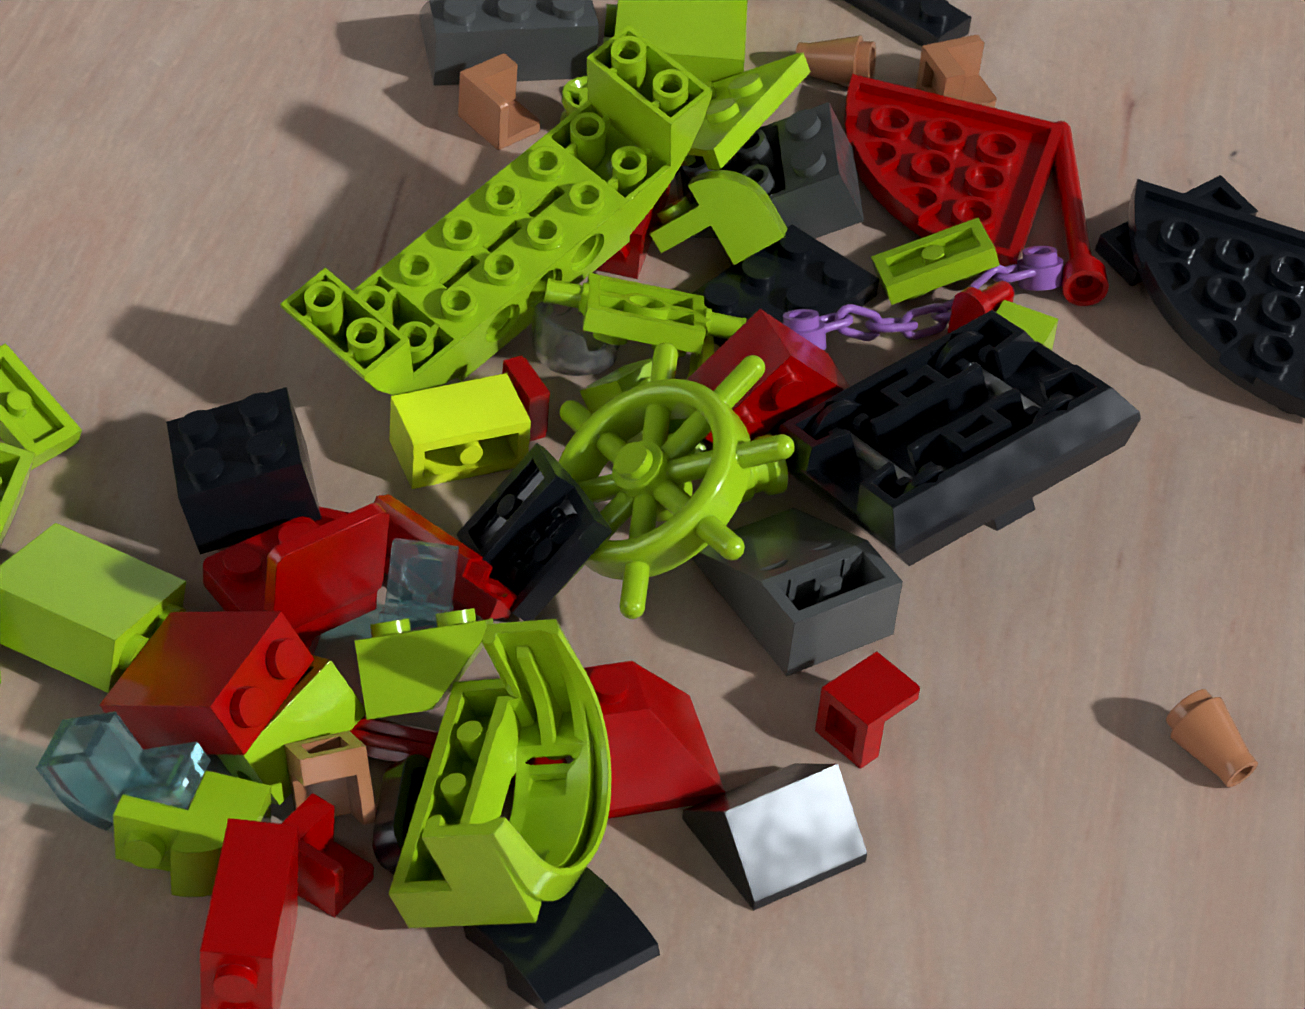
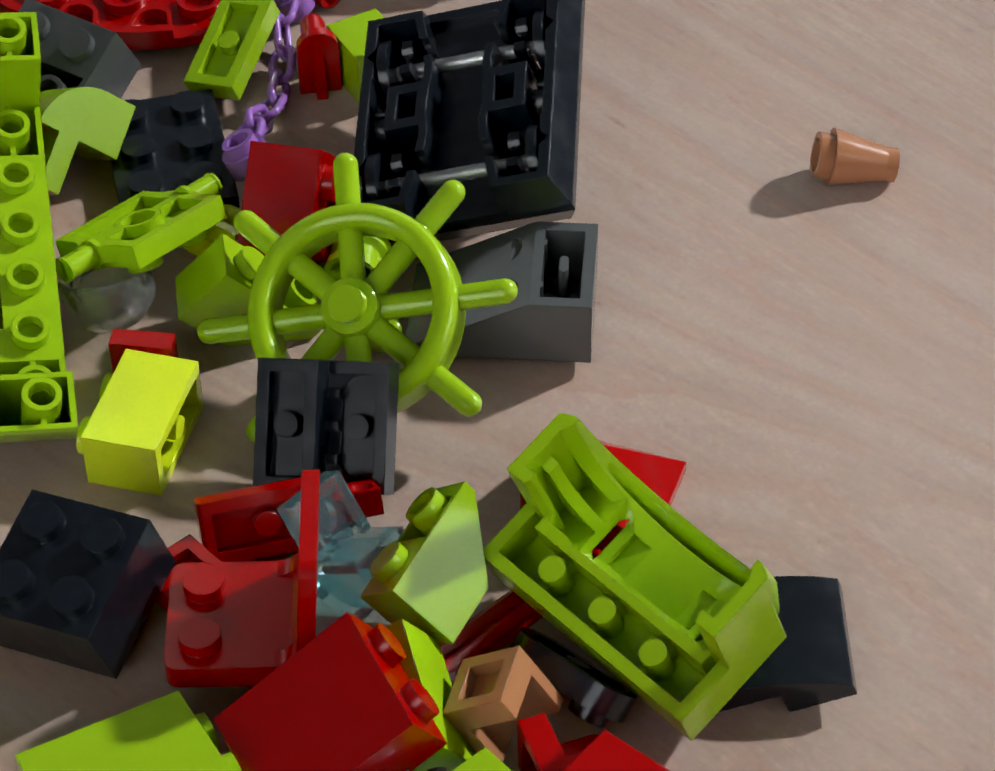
camera: 50 degrees left, 0 degrees up
(780, 831) = (752, 446): slope -> none
(859, 703) = (679, 328): red panel -> none

